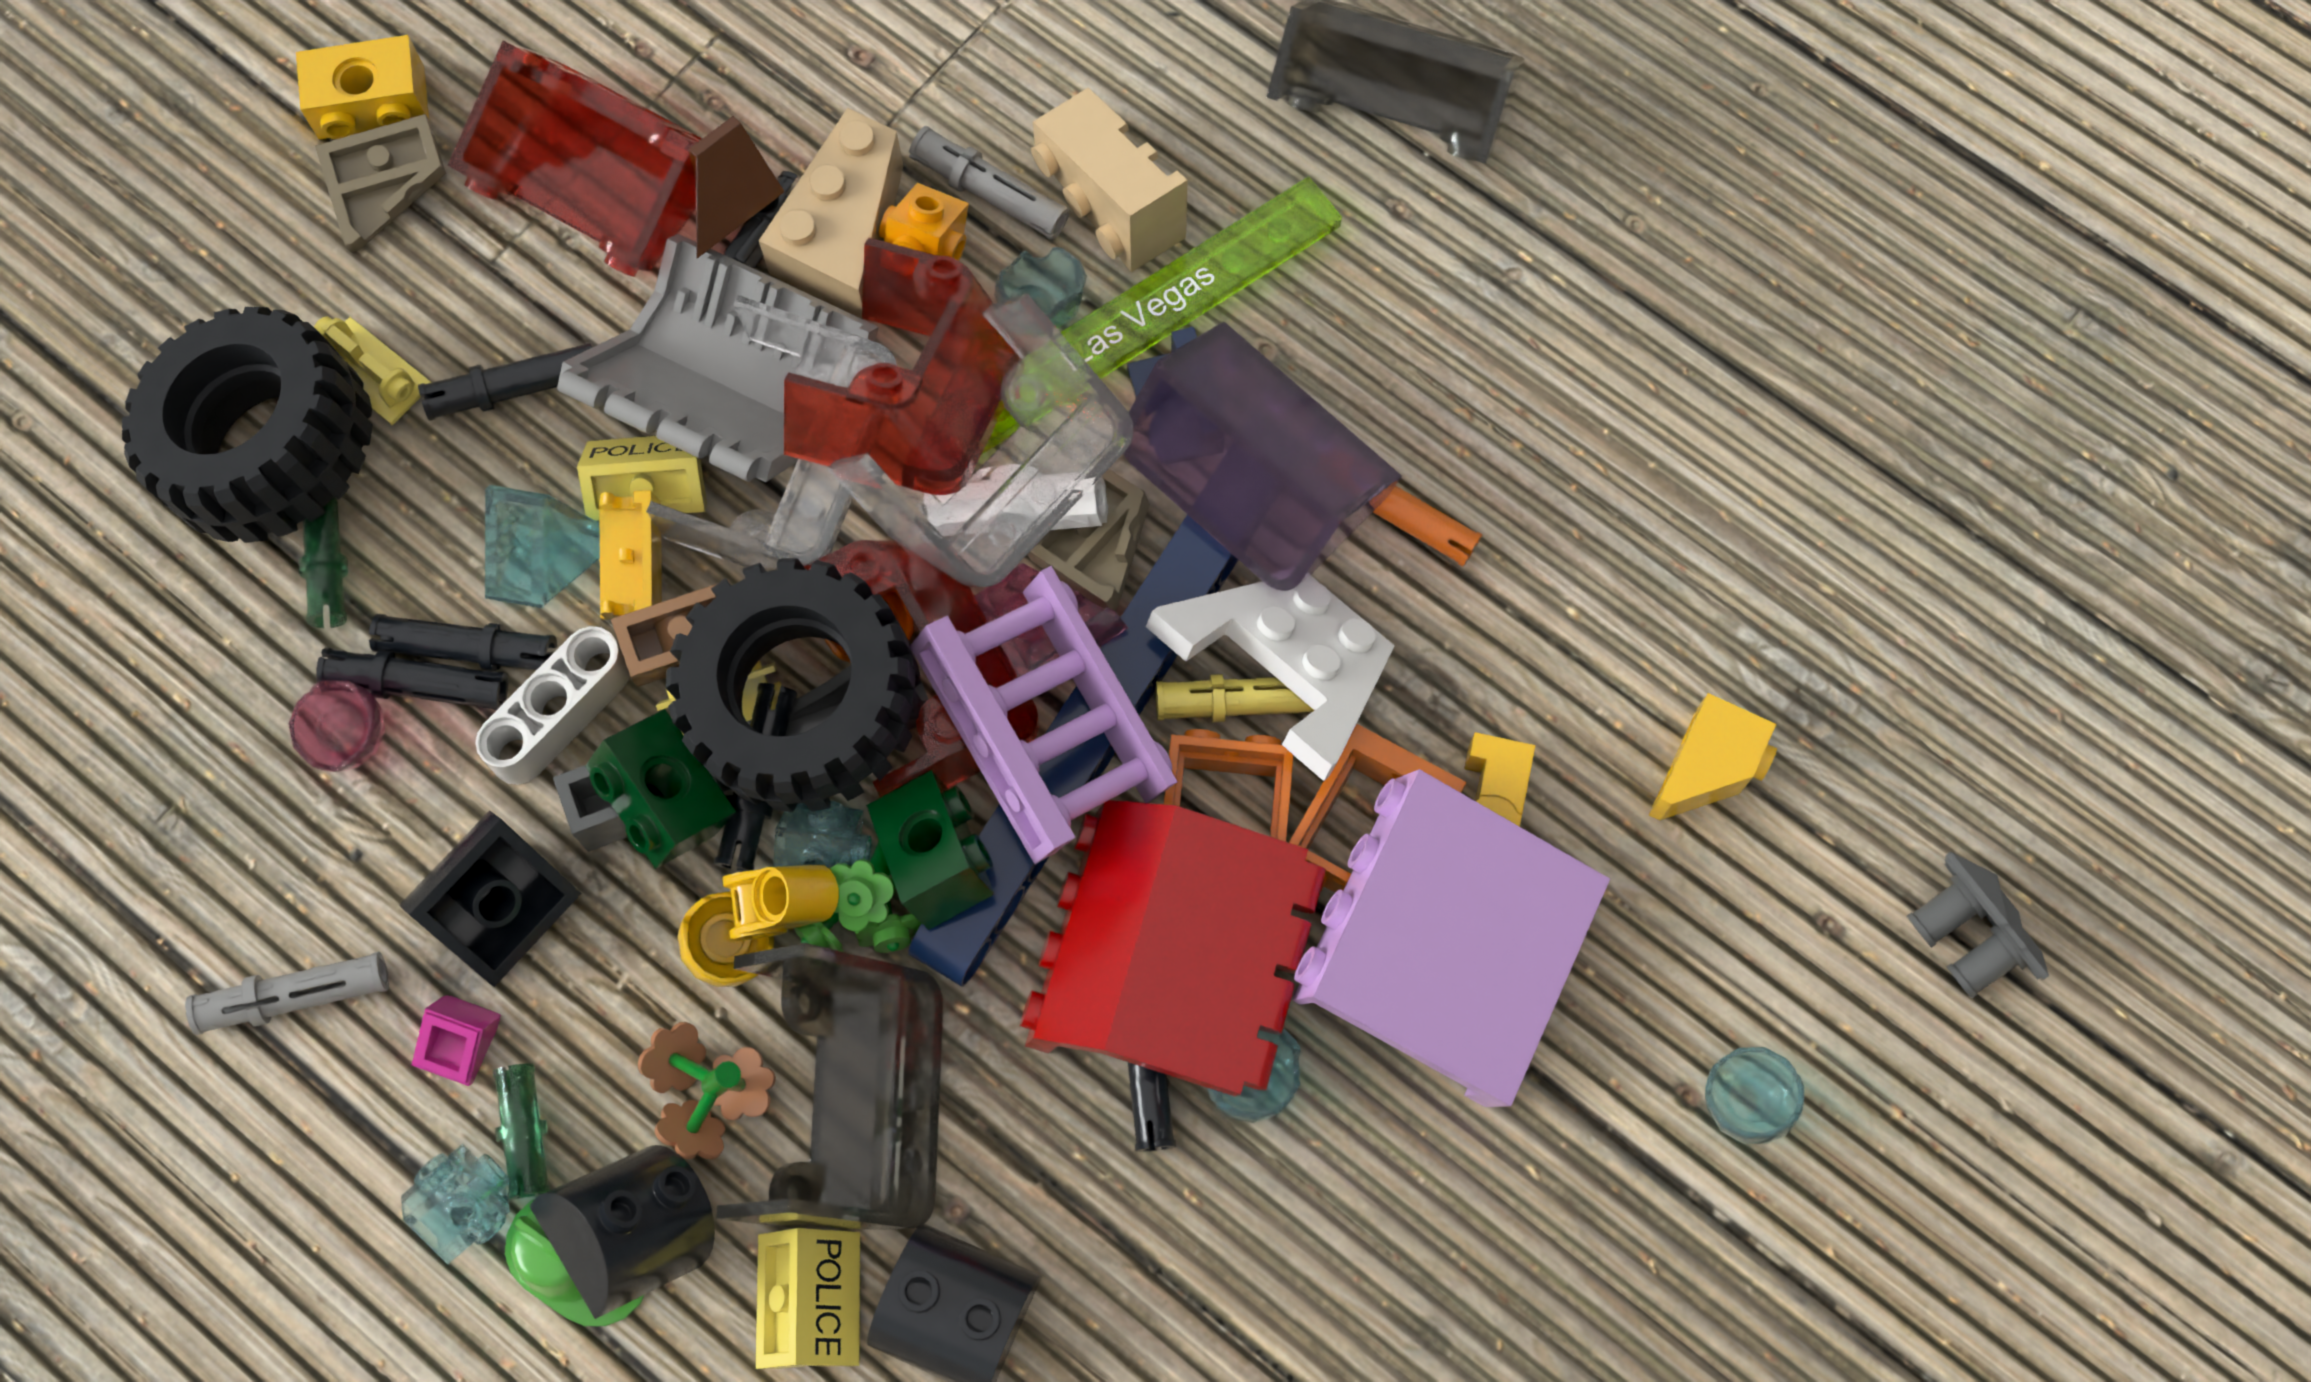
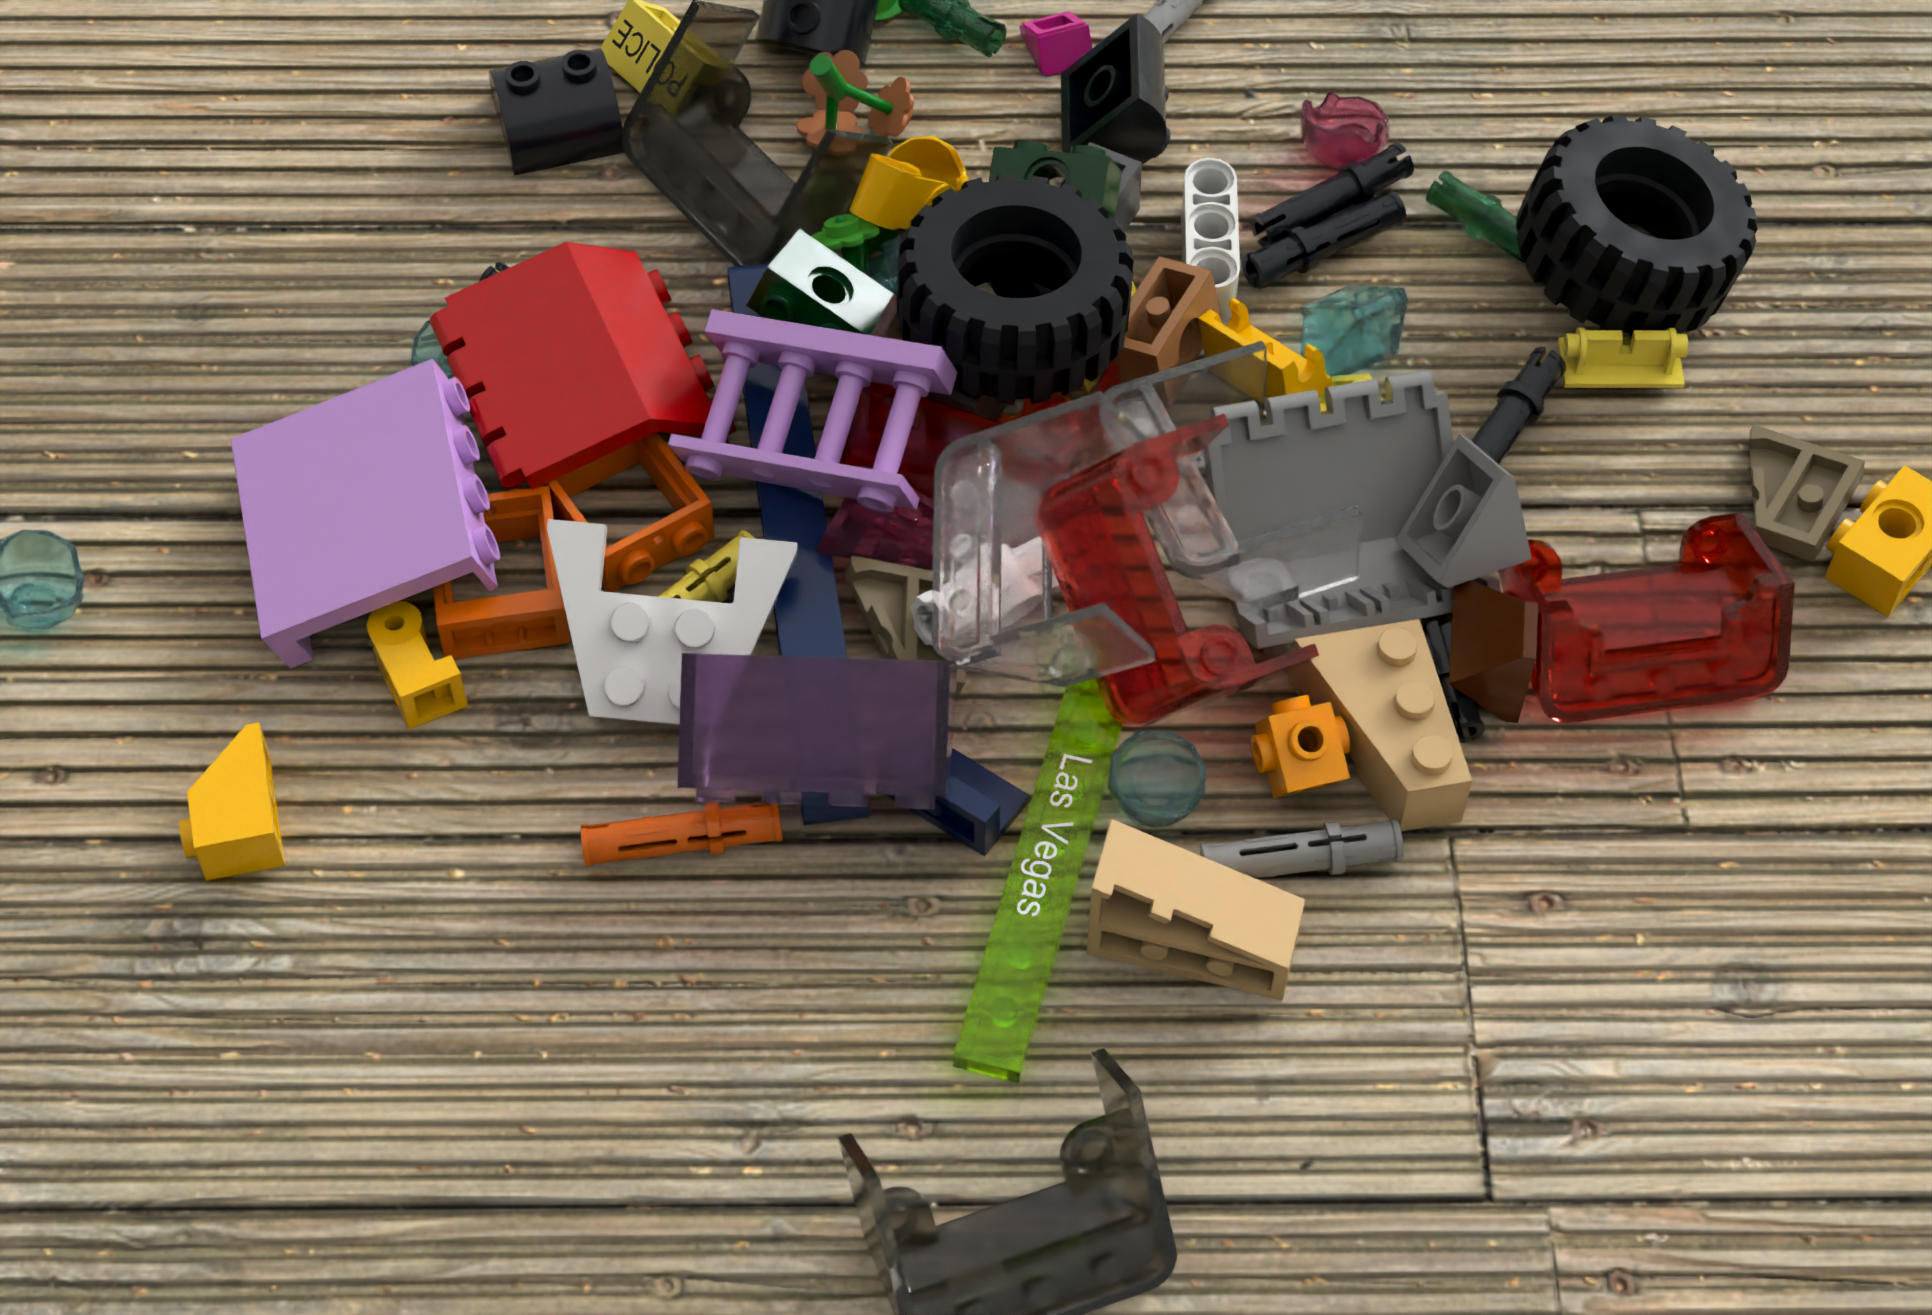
camera: 140 degrees right, 15 degrees down
(651, 285) = (1466, 519): none -> light grey slope

